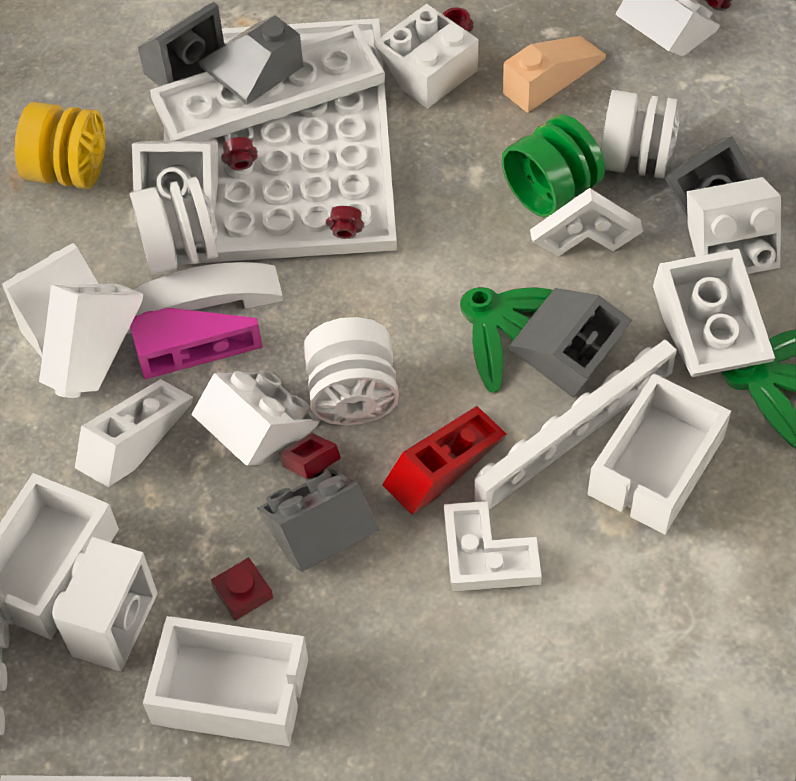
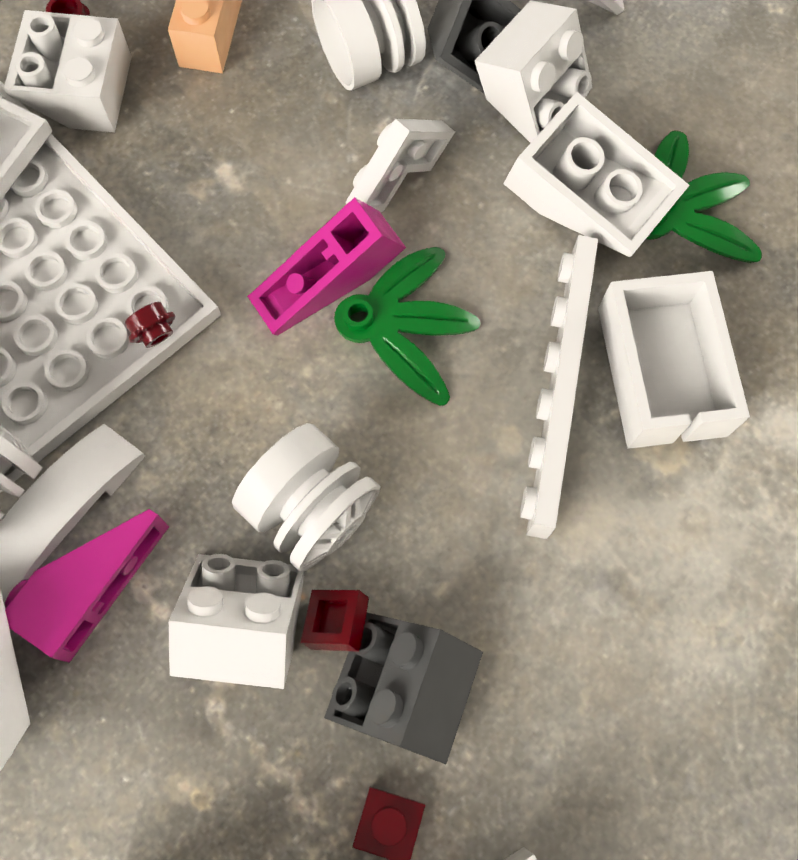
camera: 45 degrees left, 15 degrees up
(128, 432) = (113, 748): white slope -> none
(441, 459) = (473, 521): red slope -> none
(482, 562) = (588, 600): white plate -> none
(491, 260) = (327, 266): none -> dark pink slope
(553, 165) = (314, 114): green wheel -> none
(570, 337) = (488, 294): dark grey slope -> none

